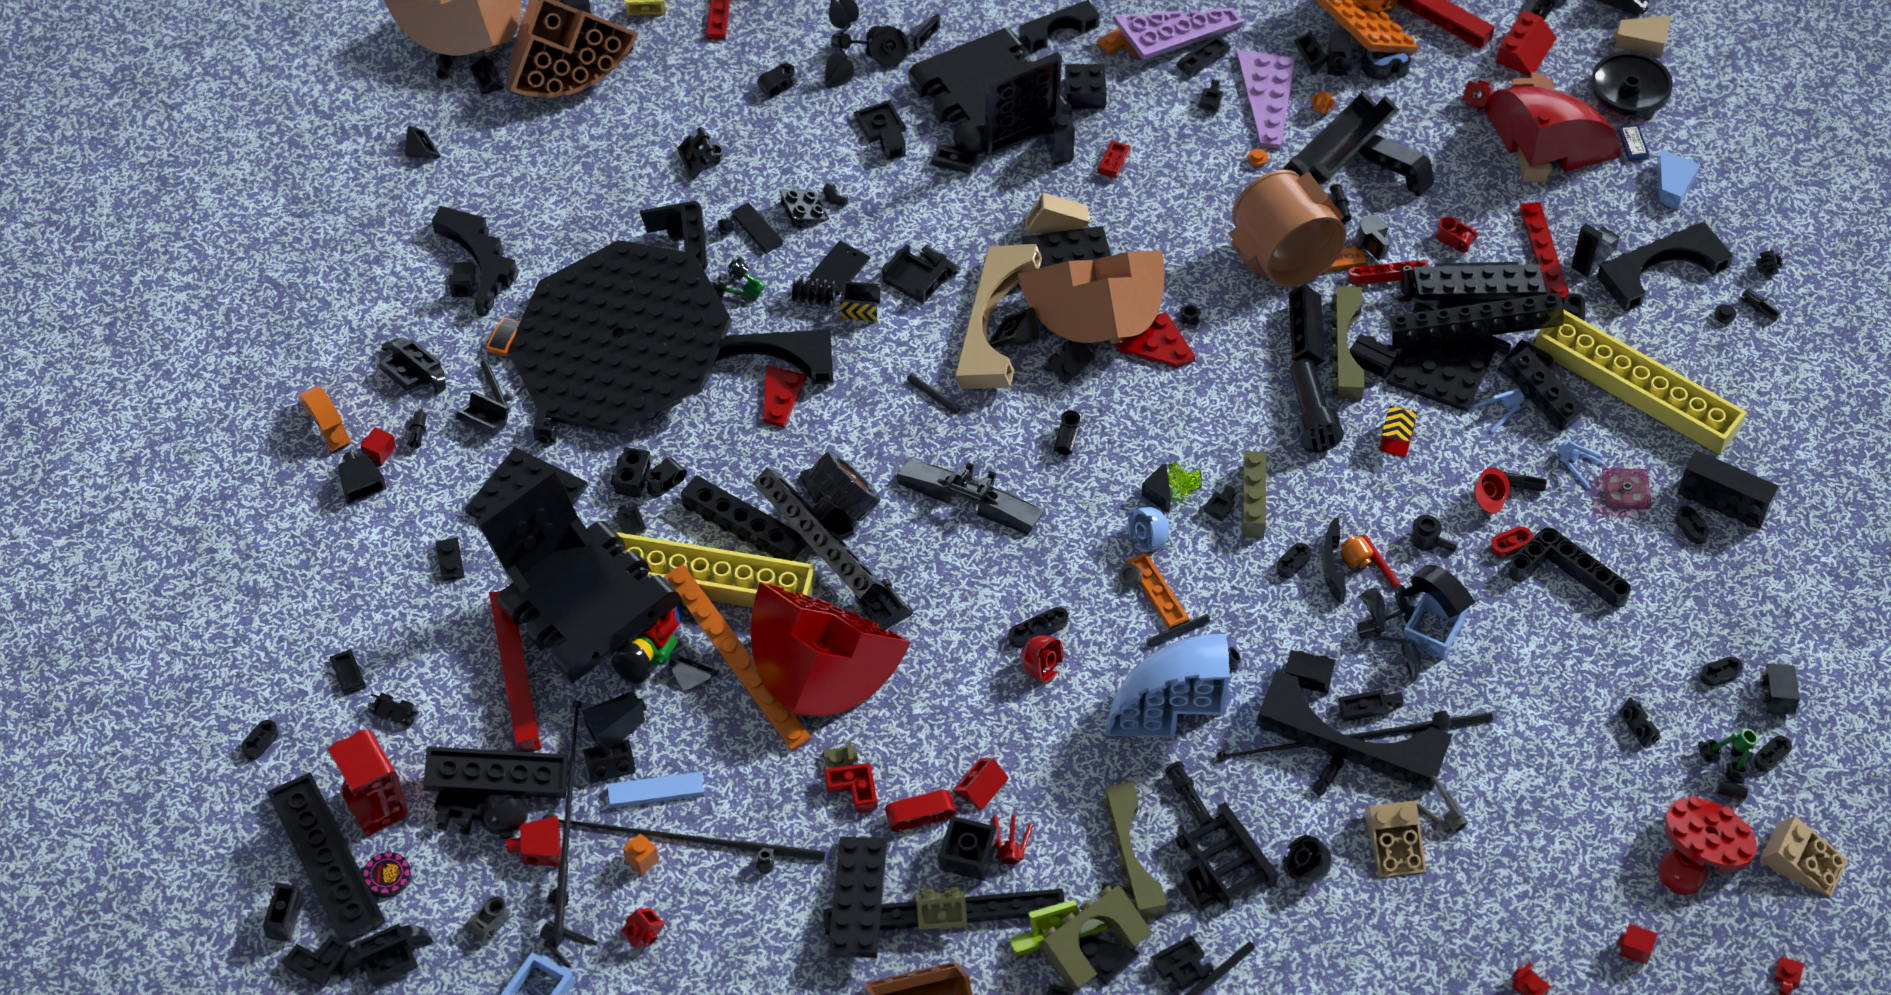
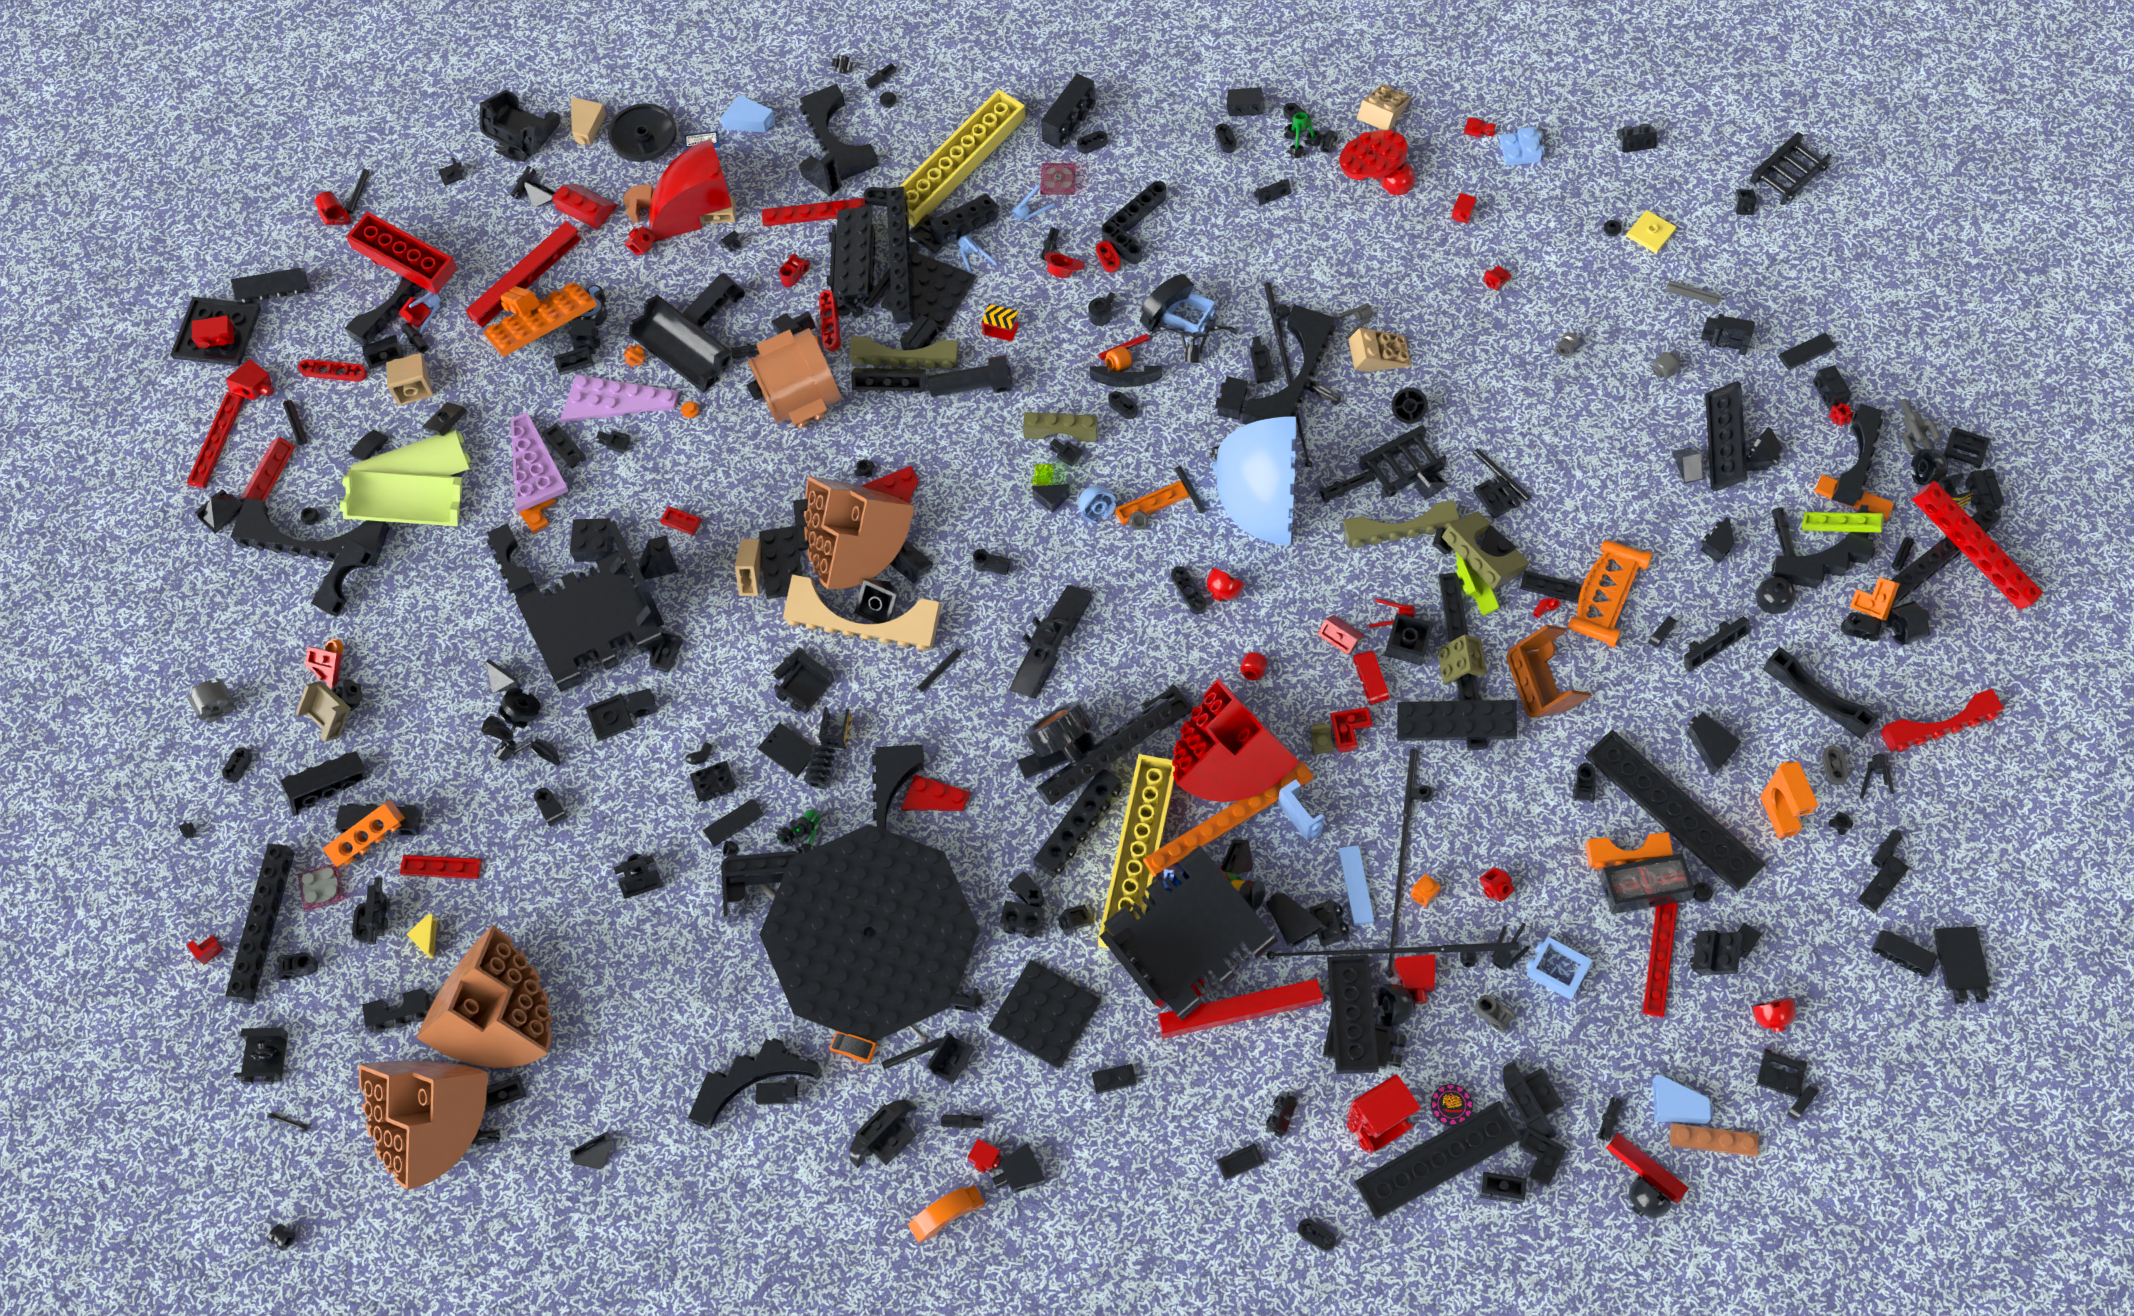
camera: 85 degrees left, 10 degrees up
(741, 721) = (1297, 814): none -> light blue panel
(935, 688) = (1253, 666): none -> red head
(1490, 174) = (730, 239): none -> black tile

